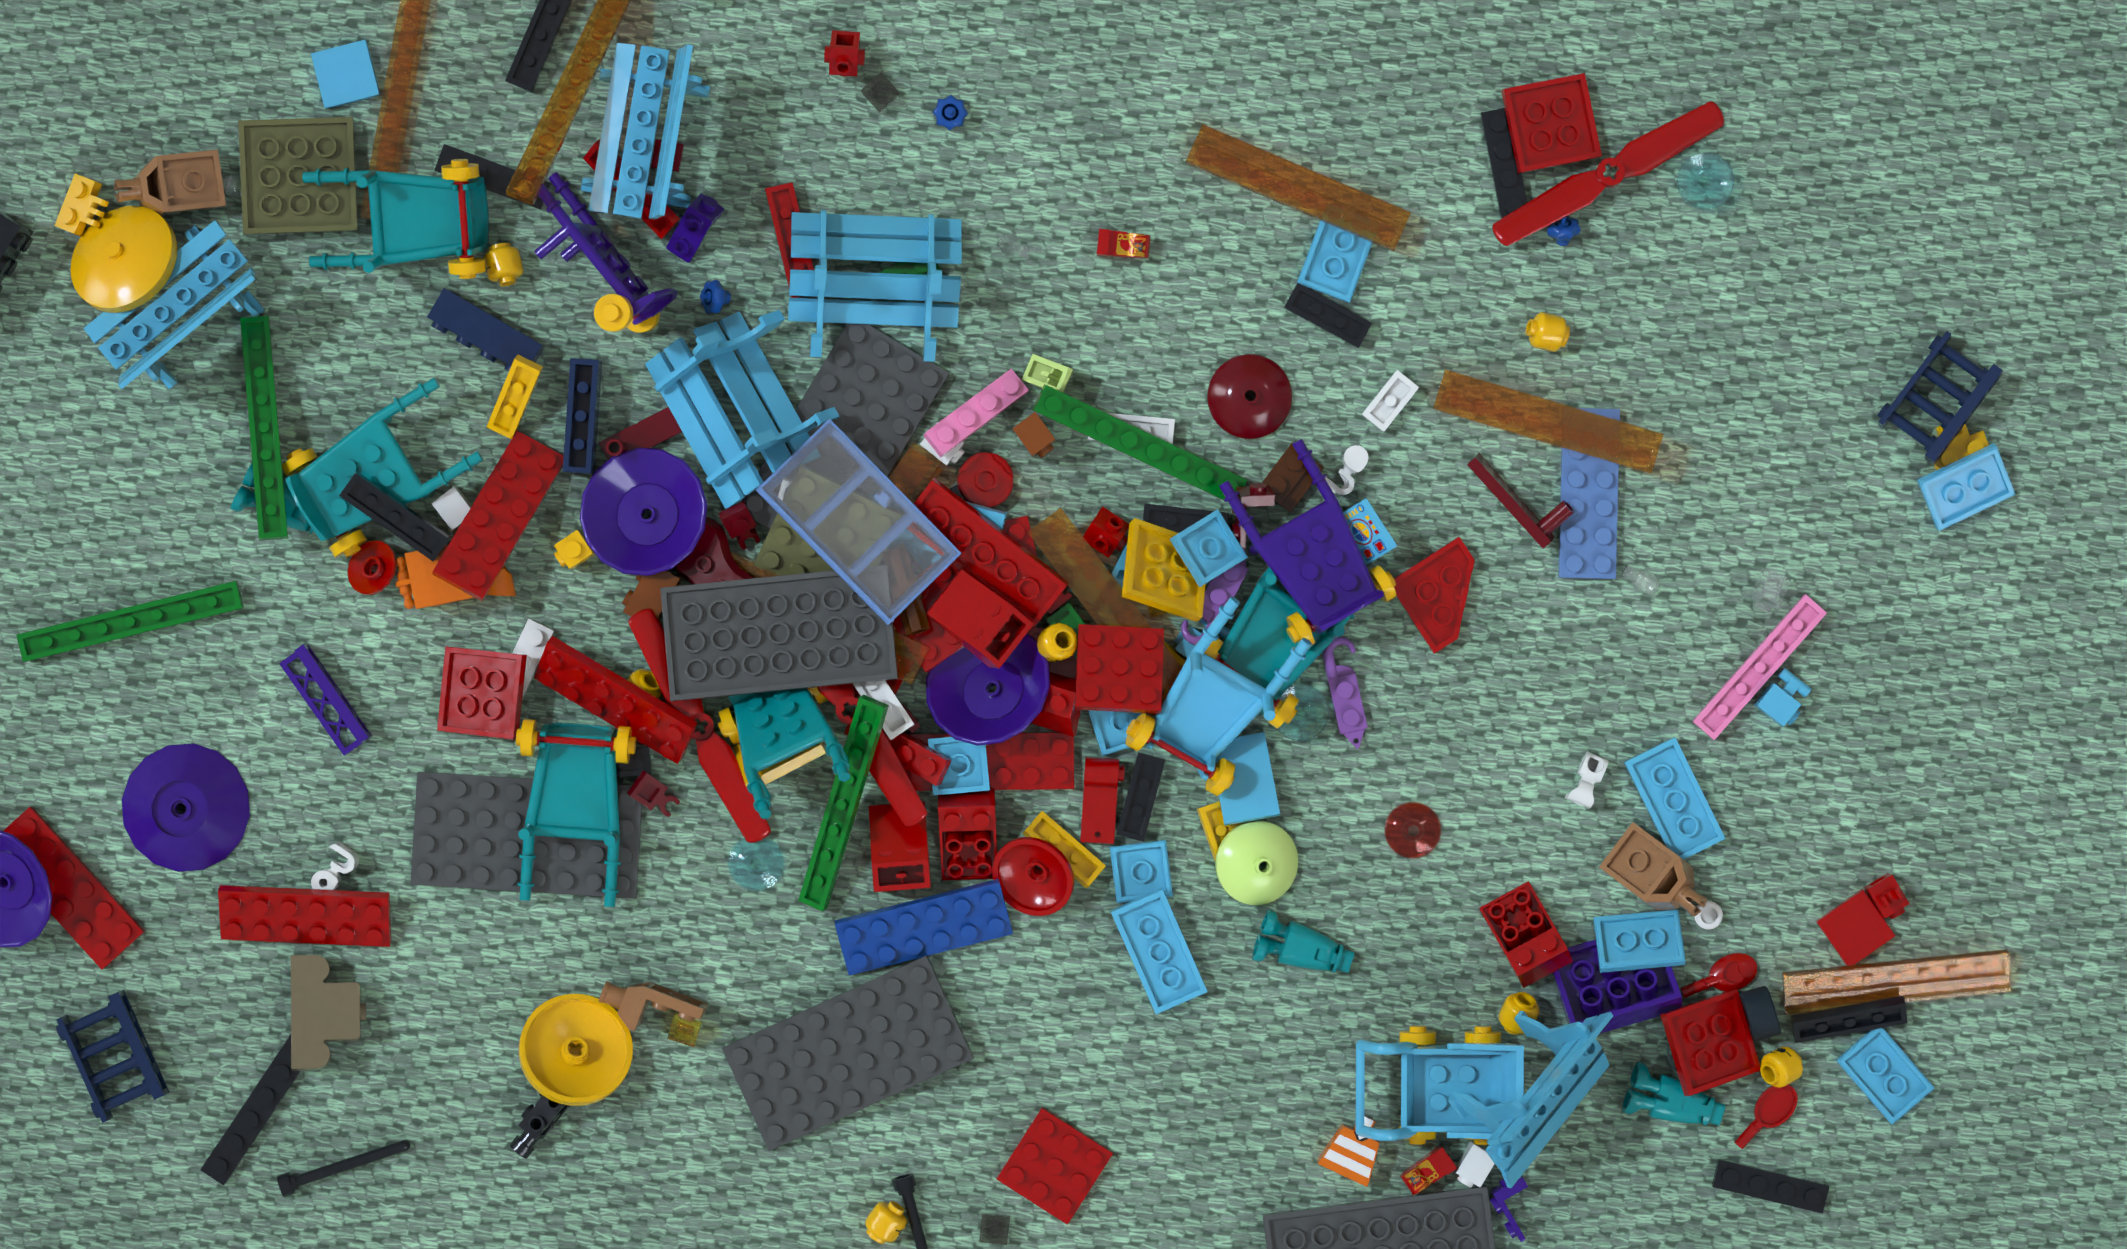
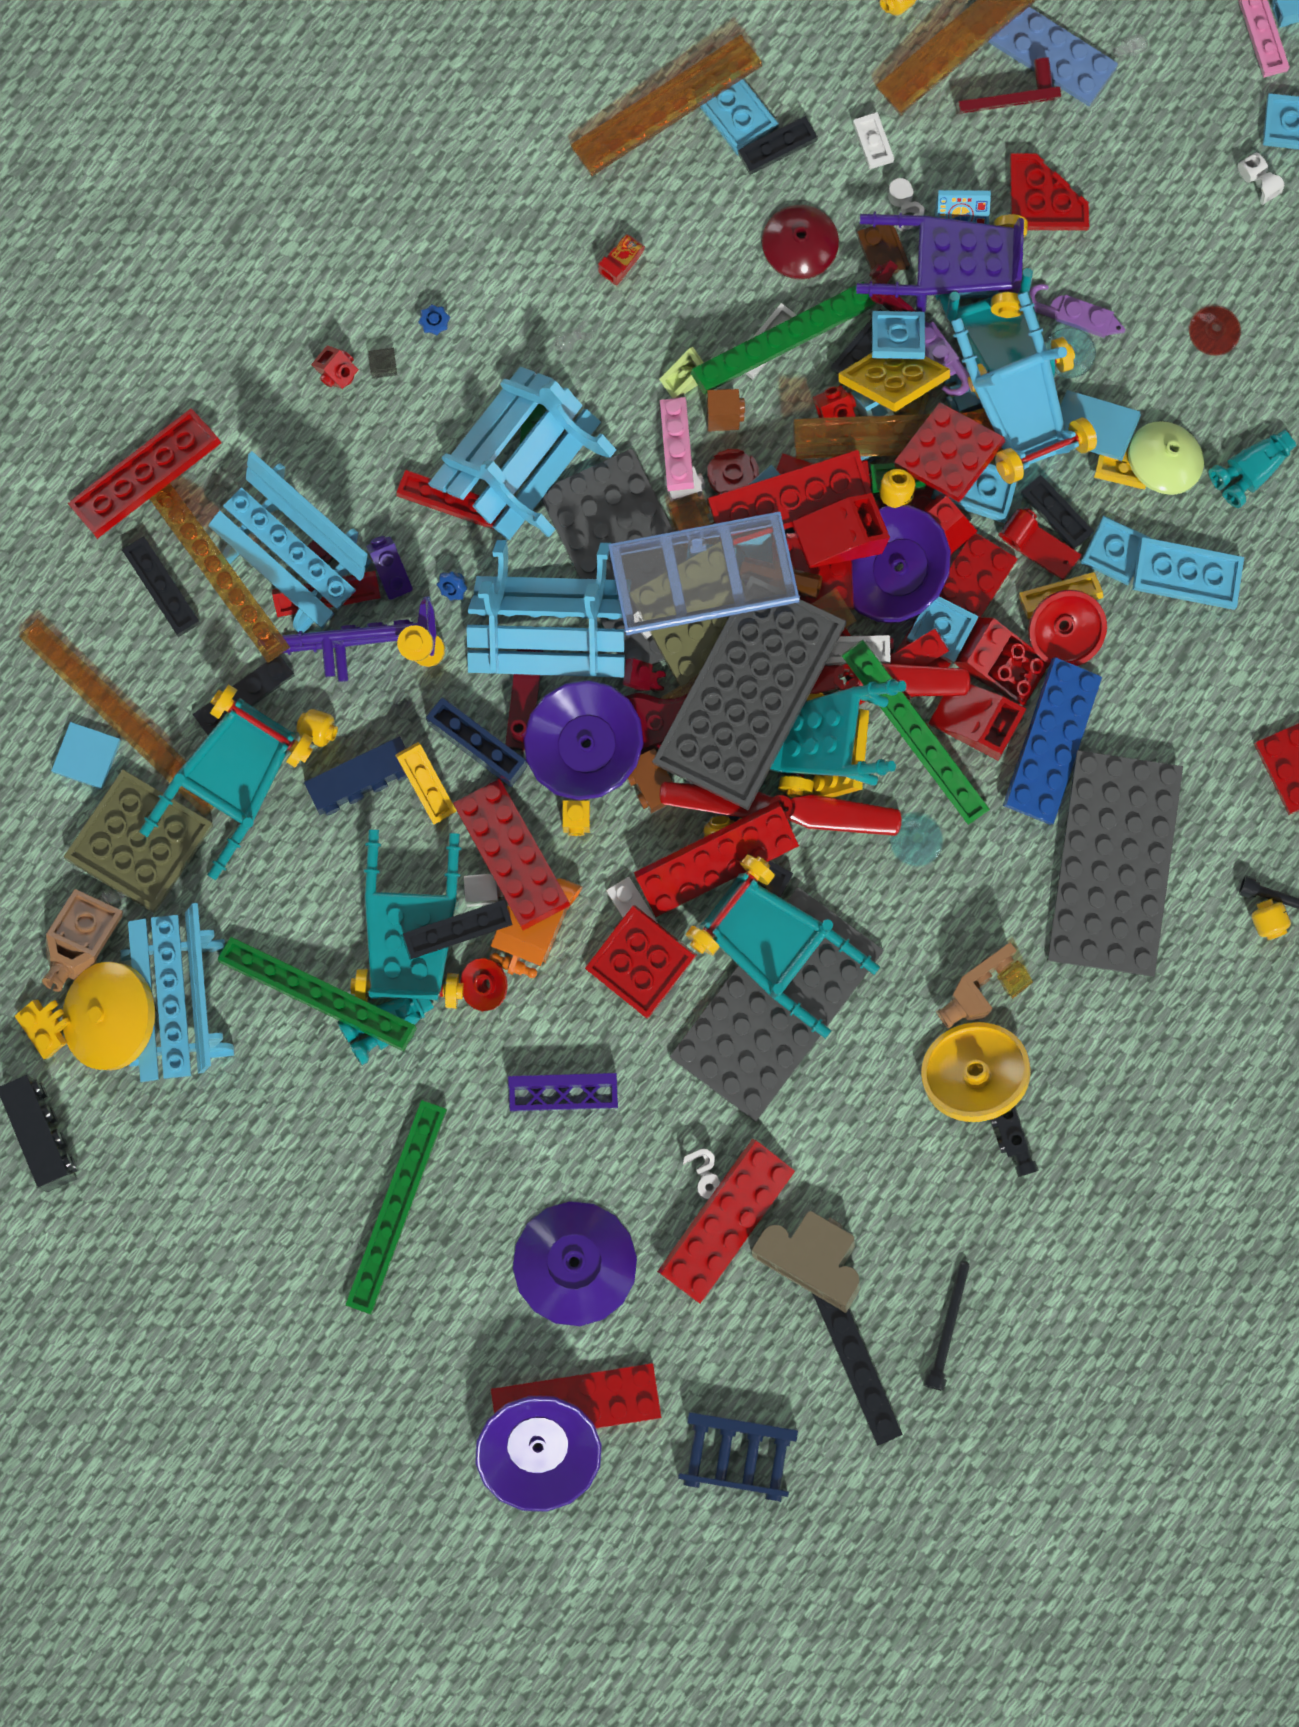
camera: 55 degrees left, 10 degrees down
(650, 792) = (807, 882): dark red plate -> none

